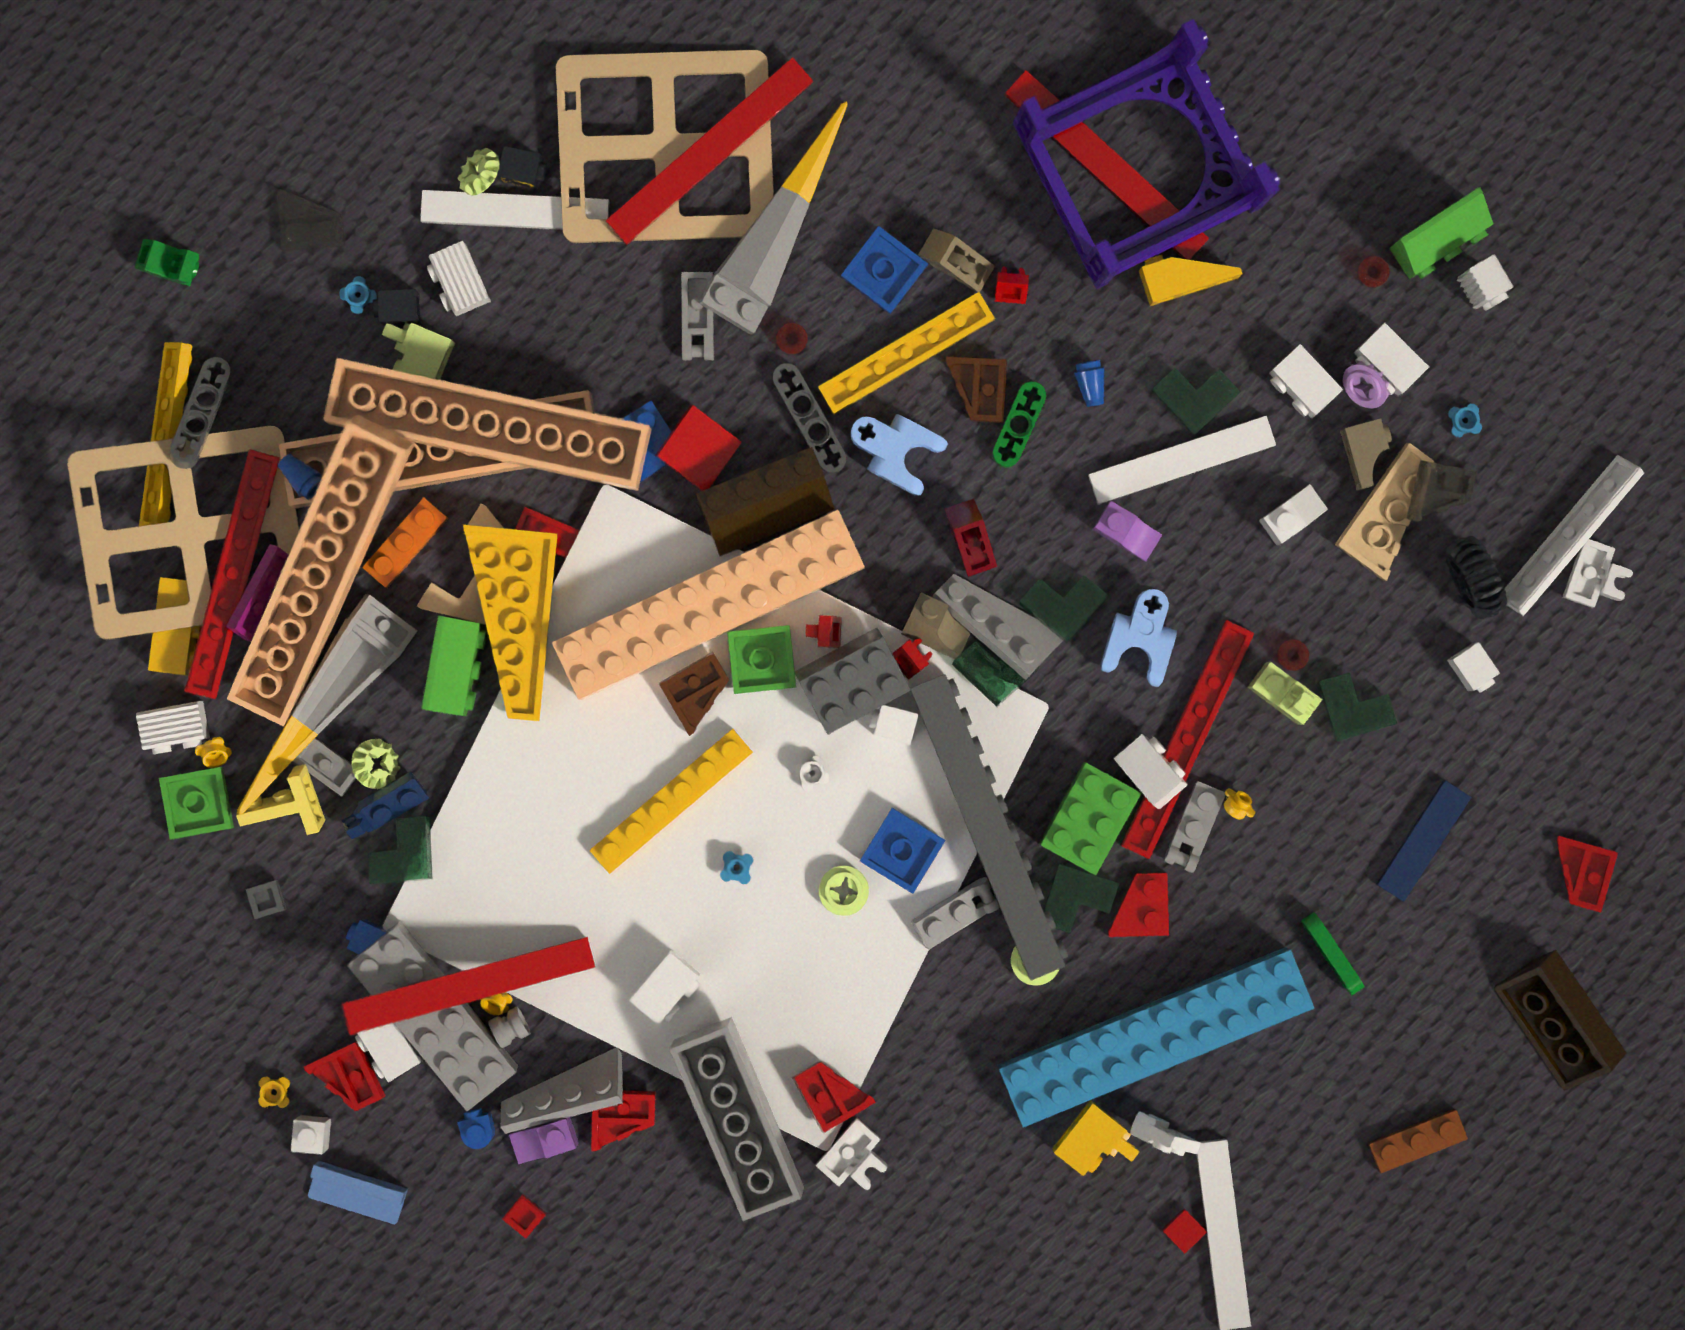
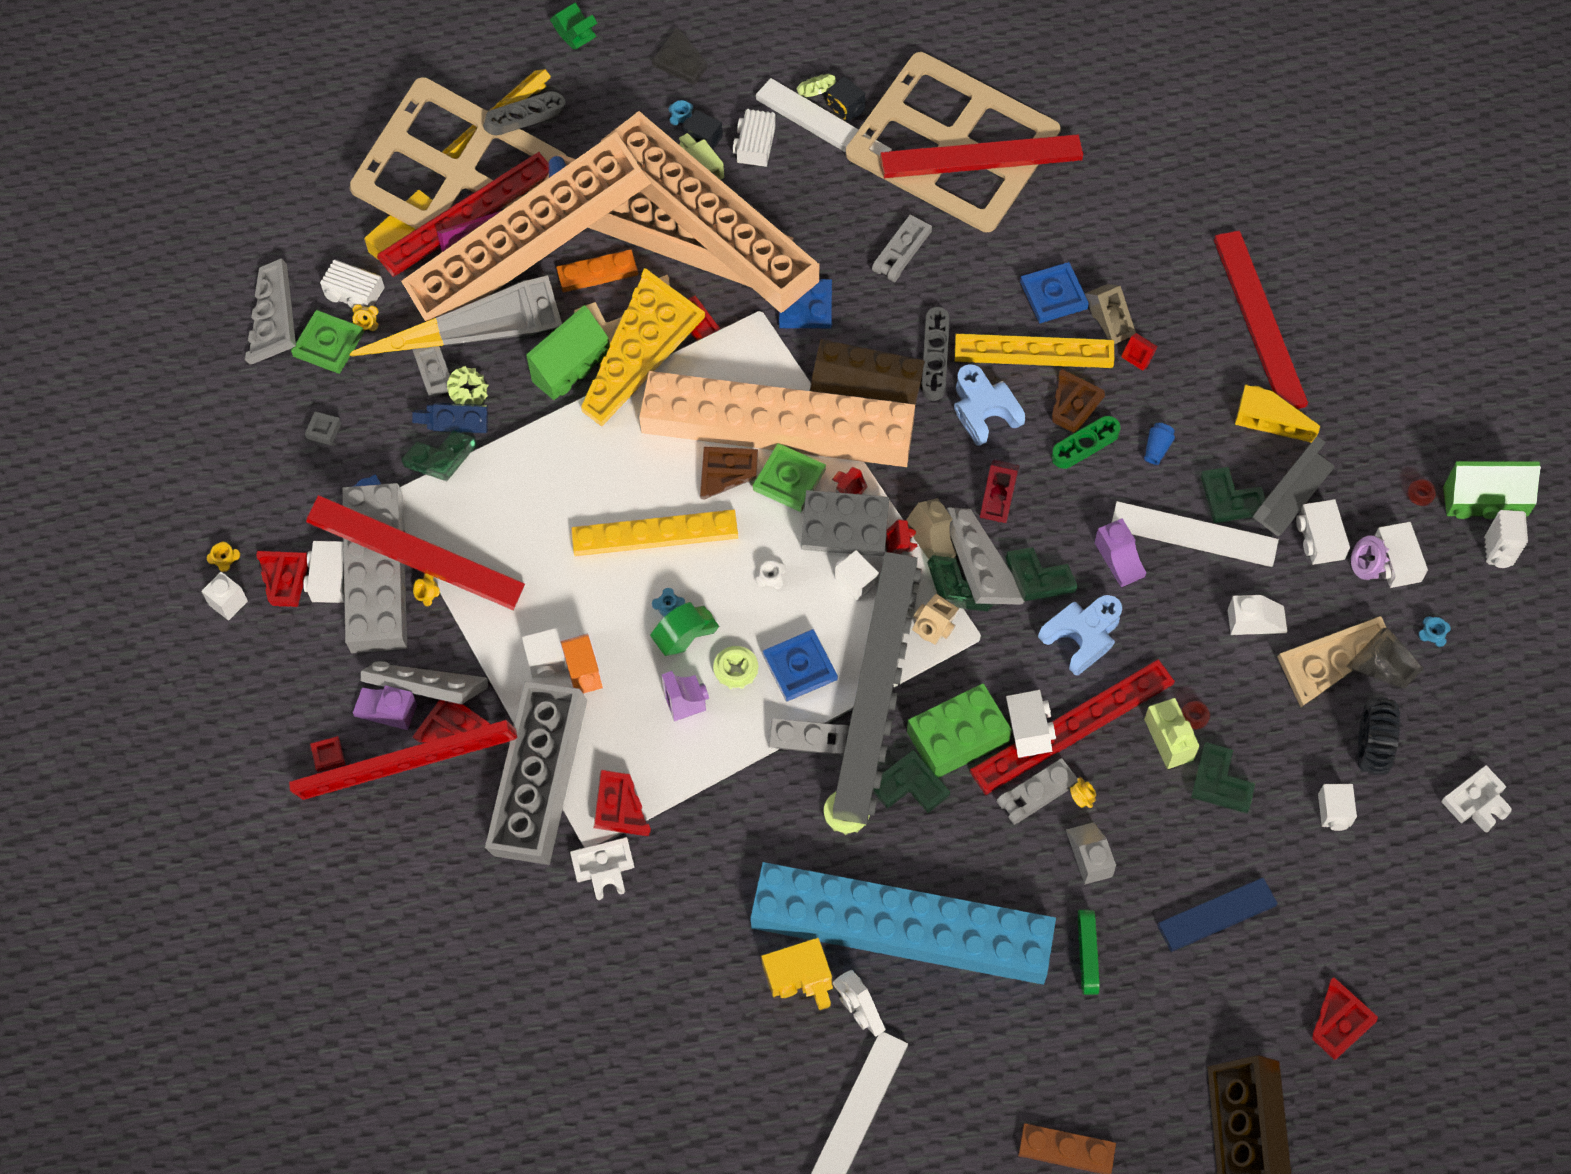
camera: 30 degrees right, 25 degrees down
(125, 818) = (273, 314): none -> light grey wing
(284, 802) = (399, 375): light yellow bracket -> none
(357, 1192) = (223, 660): medium blue panel -> none
(476, 1128) = (343, 668): blue plate -> none
(507, 1028) = (420, 613): light grey wheel -> none
(609, 1190) = (403, 760): none -> red tile
(698, 448) = (843, 321): red tile -> none
(703, 990) = (581, 663): none -> orange slope
(752, 271) = (961, 239): light grey plate -> none
(772, 887) = (681, 627): none -> green brick
(788, 329) = (958, 292): clear red plate -> none
(819, 954) = (684, 695): none -> medium lavender arch
(1001, 726) = (935, 619): none -> tan brick
(1143, 908) = (957, 826): red wing -> none
(1184, 1230) = (825, 1096): red tile -> none
(1249, 188) = (1346, 273): dark purple arch -> none
(1252, 351) = (1294, 489): none -> dark grey panel
(1278, 856) = (1091, 853): none -> light grey slope
(1363, 446) = (1344, 600): dark tan arch -> none
(1571, 534) = (1474, 757): white tile -> none

